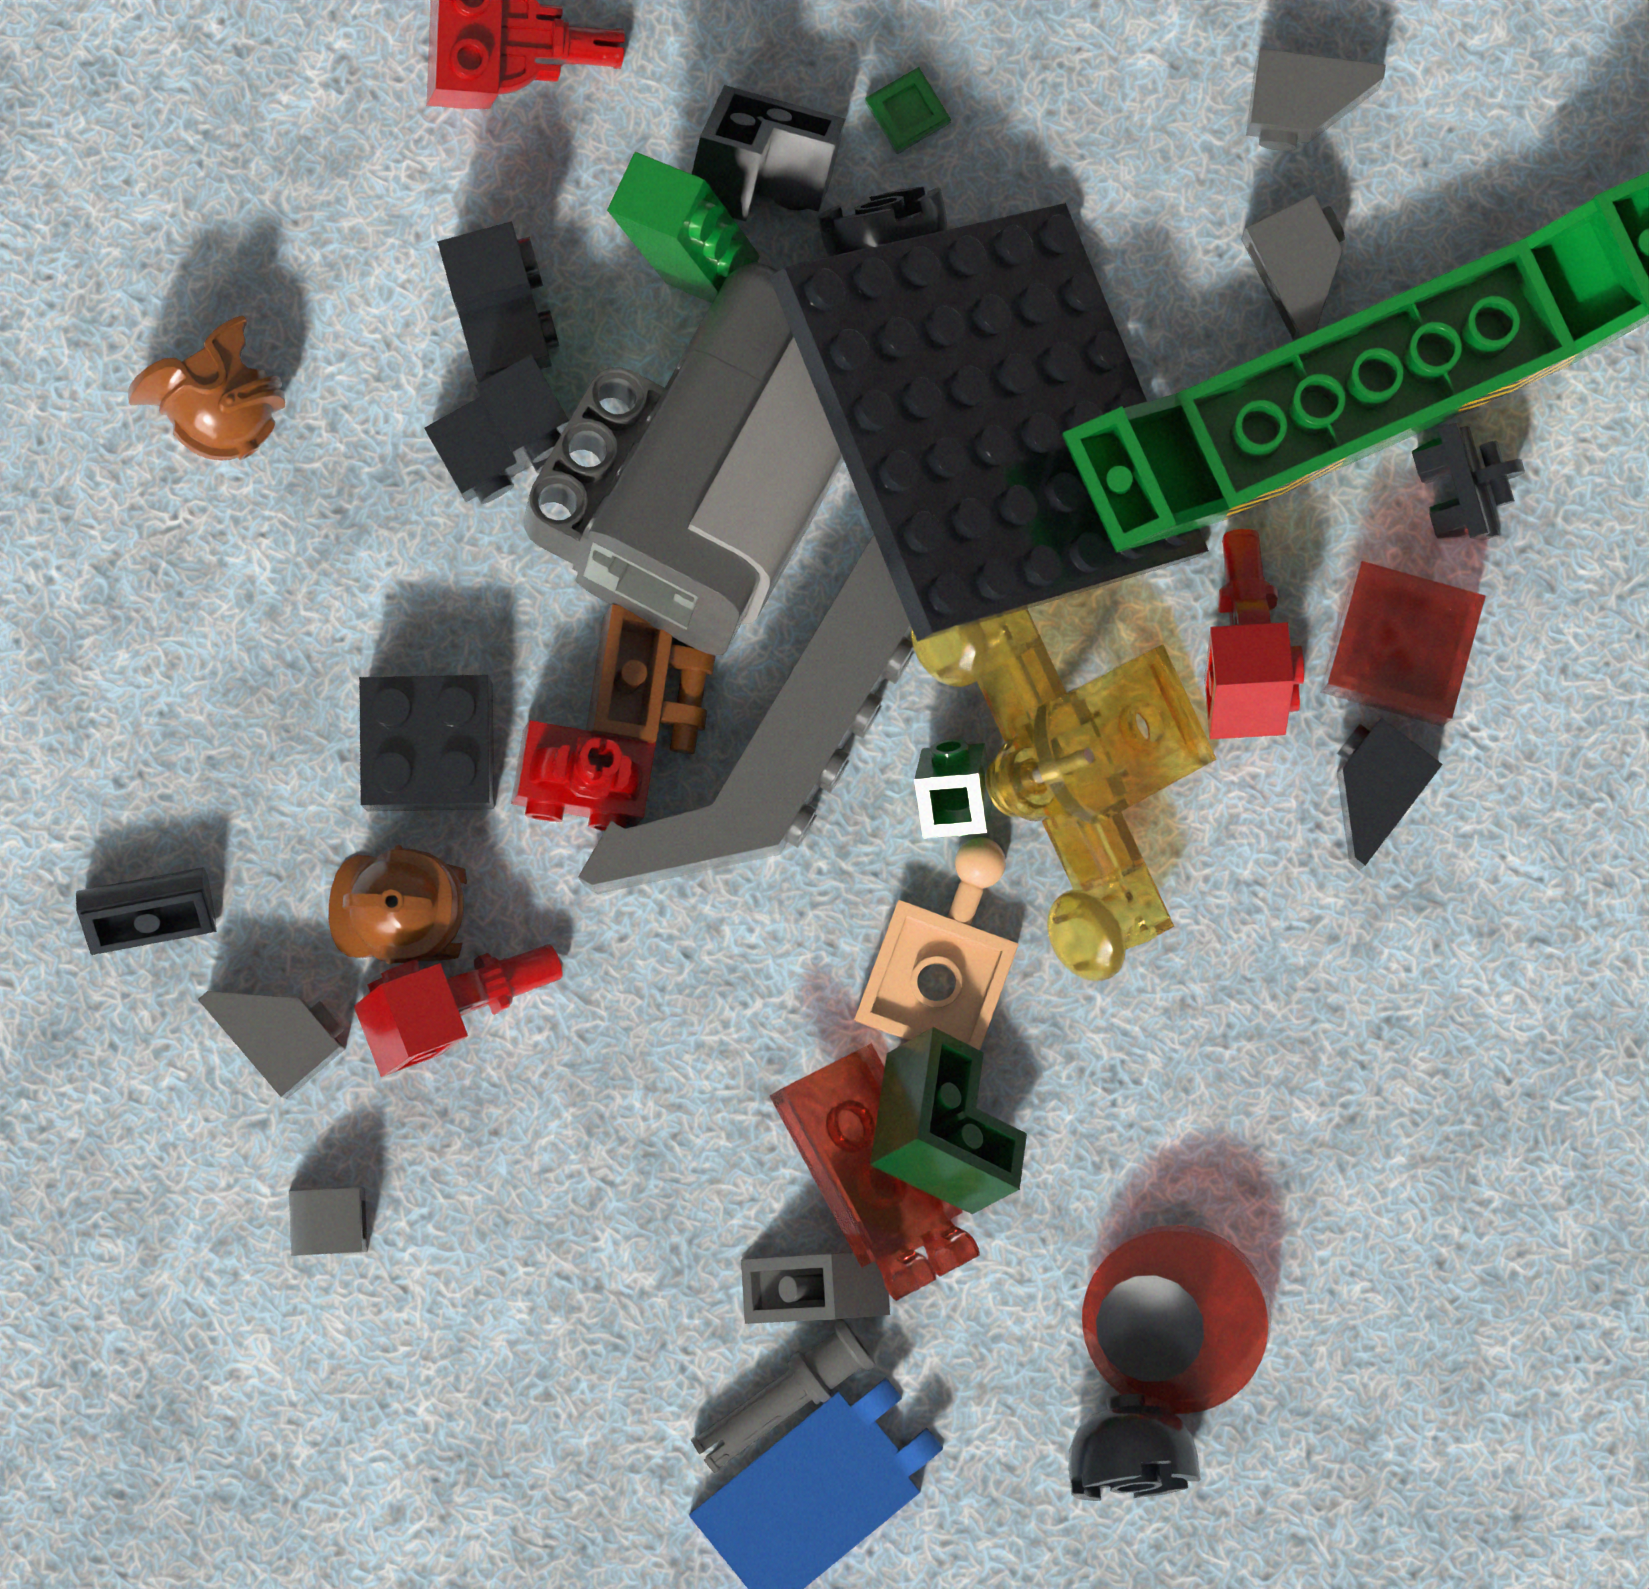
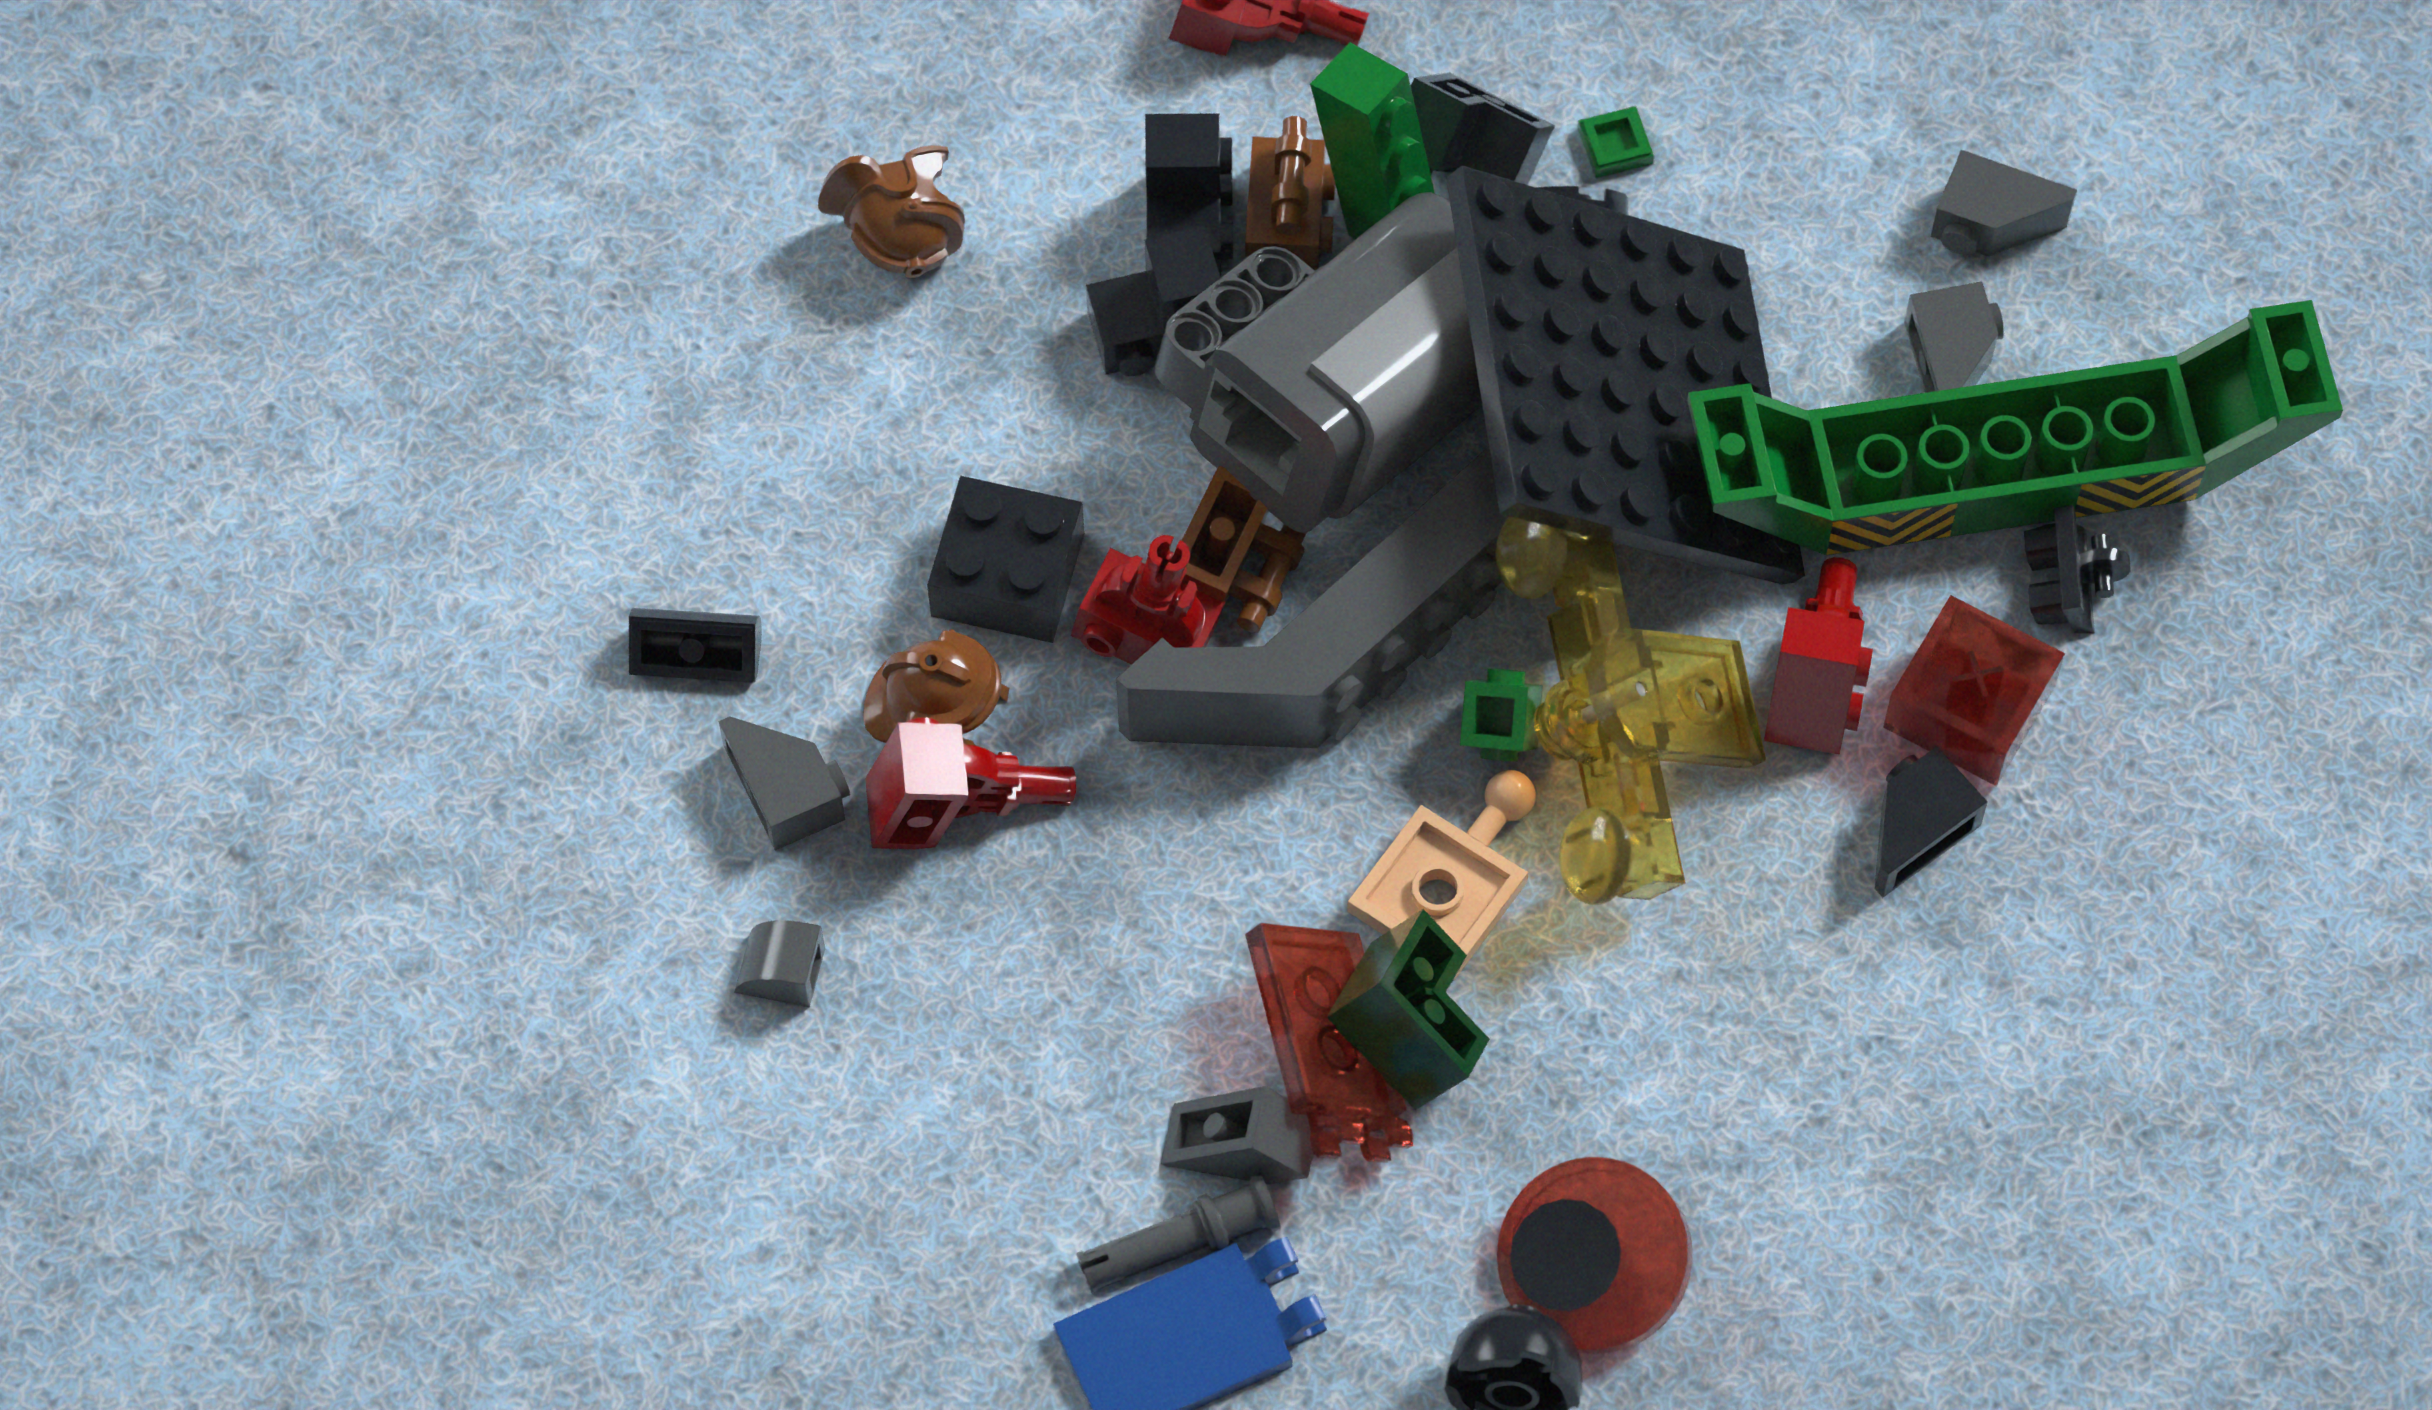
camera: 15 degrees right, 20 degrees down
(598, 276) = (1288, 194): none -> dark orange brick

